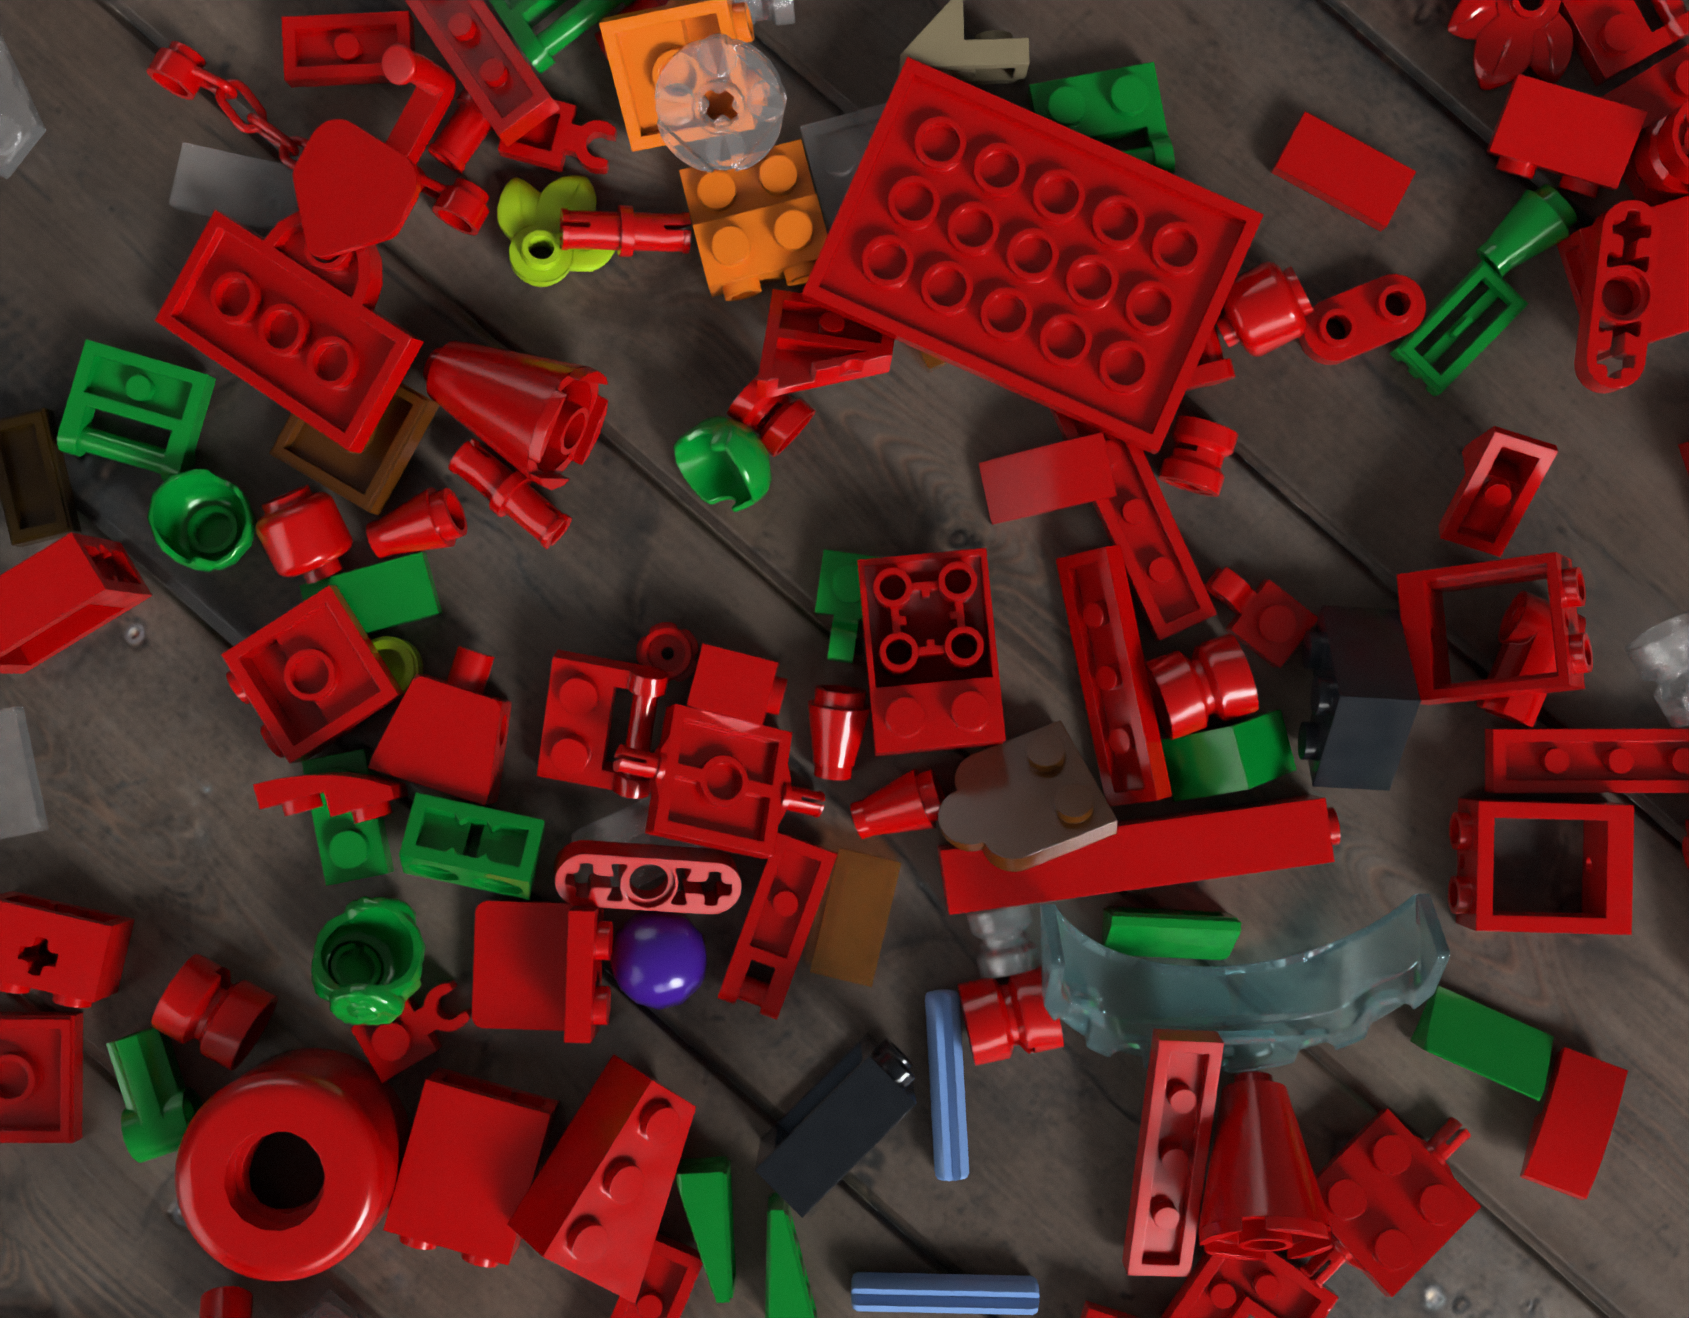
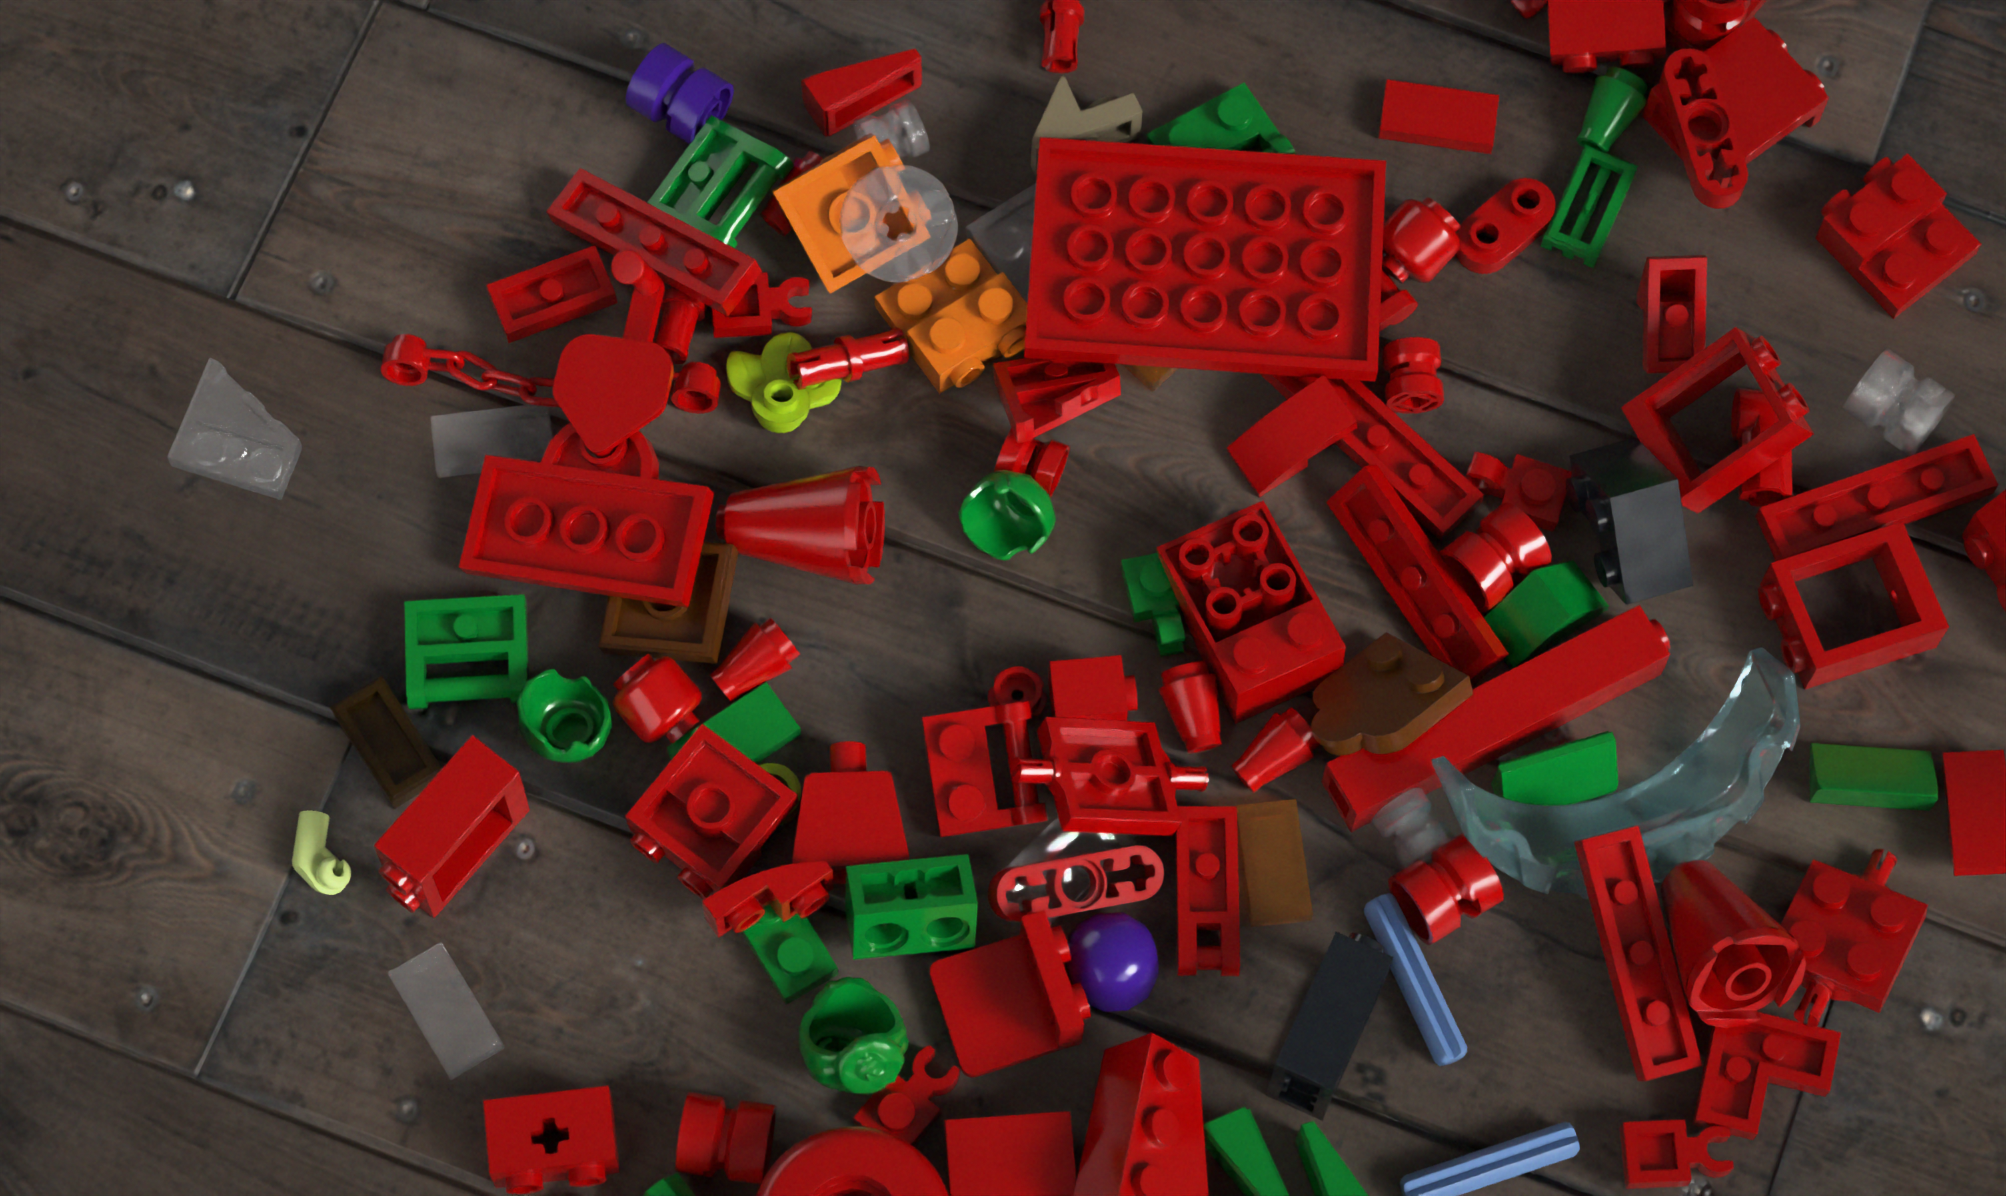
camera: 20 degrees left, 20 degrees down
(509, 493) = (827, 607): red pin -> none

